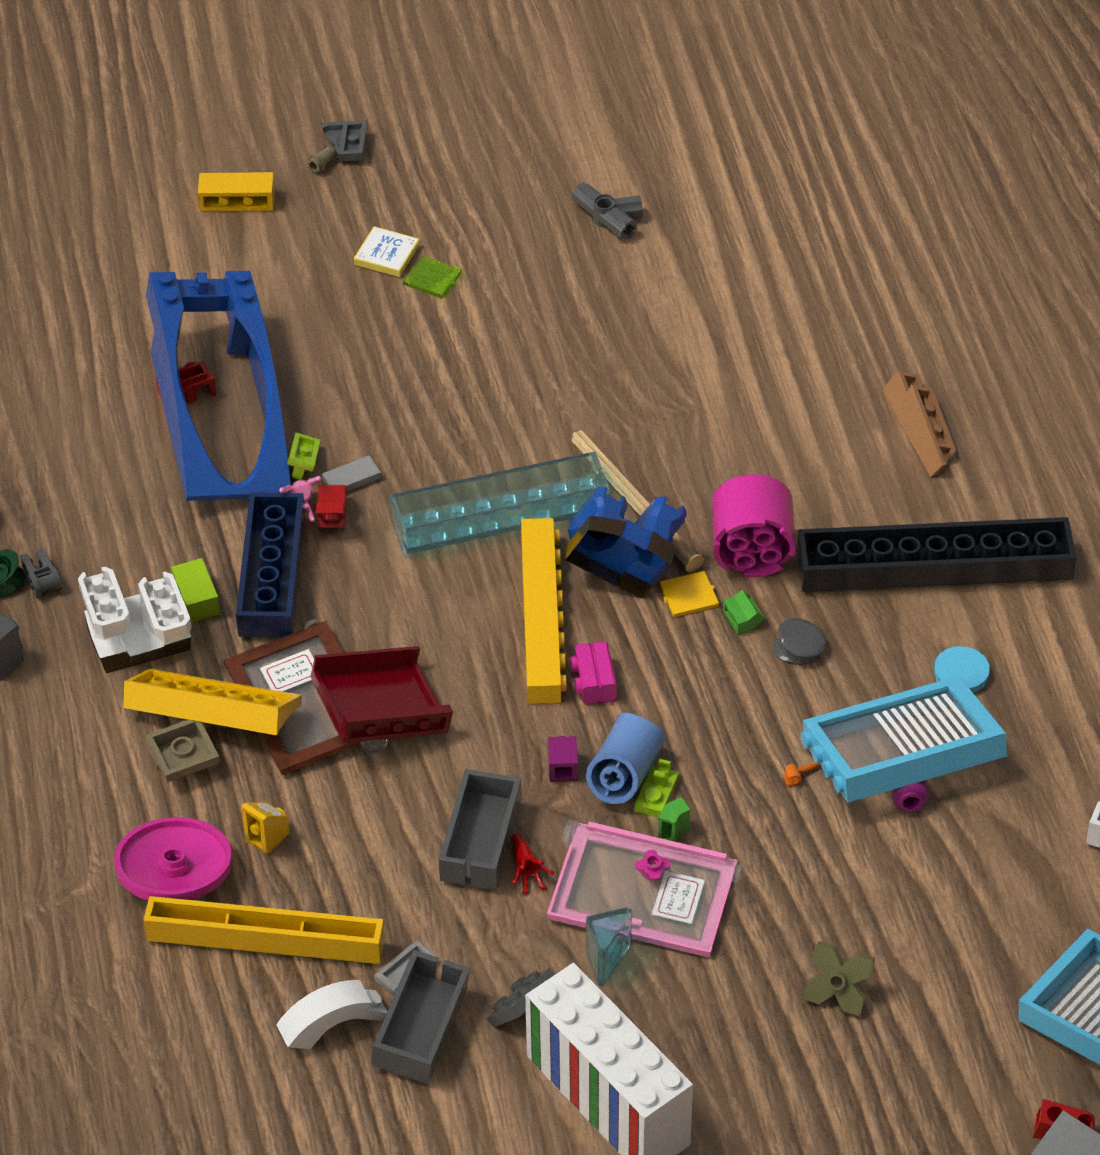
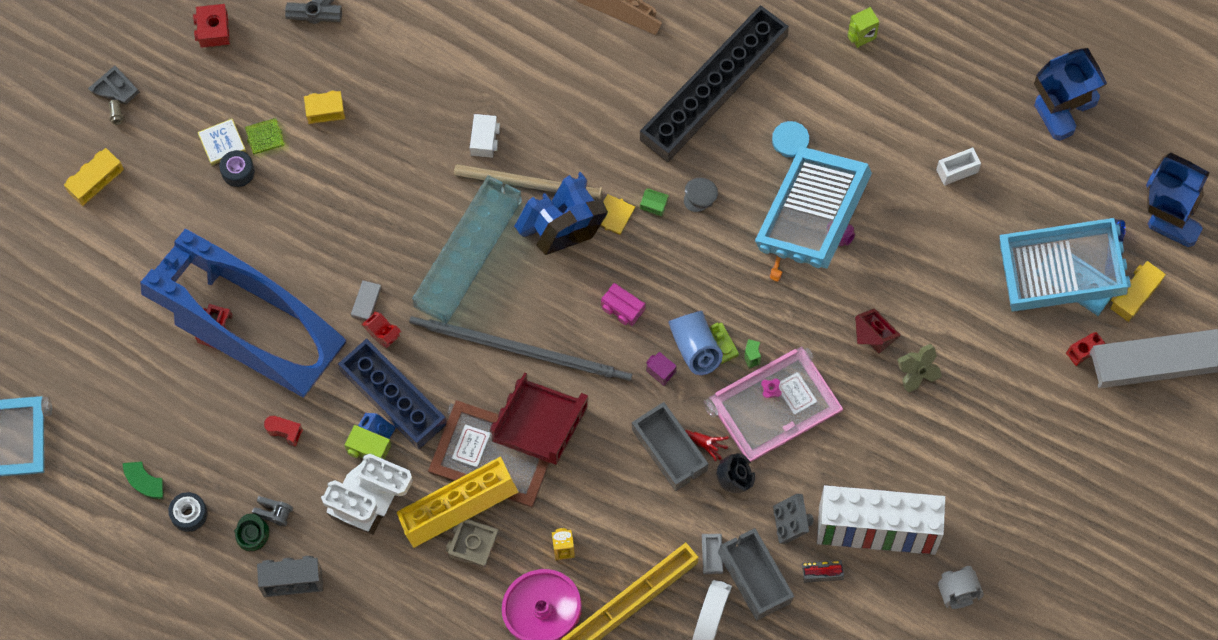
camera: 45 degrees left, 20 degrees up
(139, 517) = (285, 428): none -> red leg
(226, 585) = (377, 425): none -> blue bracket
(303, 454) = (329, 311): lime plate -> none
(303, 486) = (355, 335): bright pink plant -> none
(371, 279) = (233, 162): none -> black wheel
(448, 634) = (520, 348): none -> dark grey axle
(495, 153) = (205, 18): none -> red brick
(498, 1084) = (822, 571): none -> slope
(515, 291) = (324, 107): none -> yellow piece
(517, 908) = (735, 473): none -> black cylinder
(541, 611) = (556, 293): yellow brick -> none
(608, 941) = (797, 453): clear light blue slope -> none
(639, 426) = (483, 135): none -> white brick
(753, 525) = (616, 148): dark pink brick -> none
(837, 907) = (875, 330): none -> dark red slope

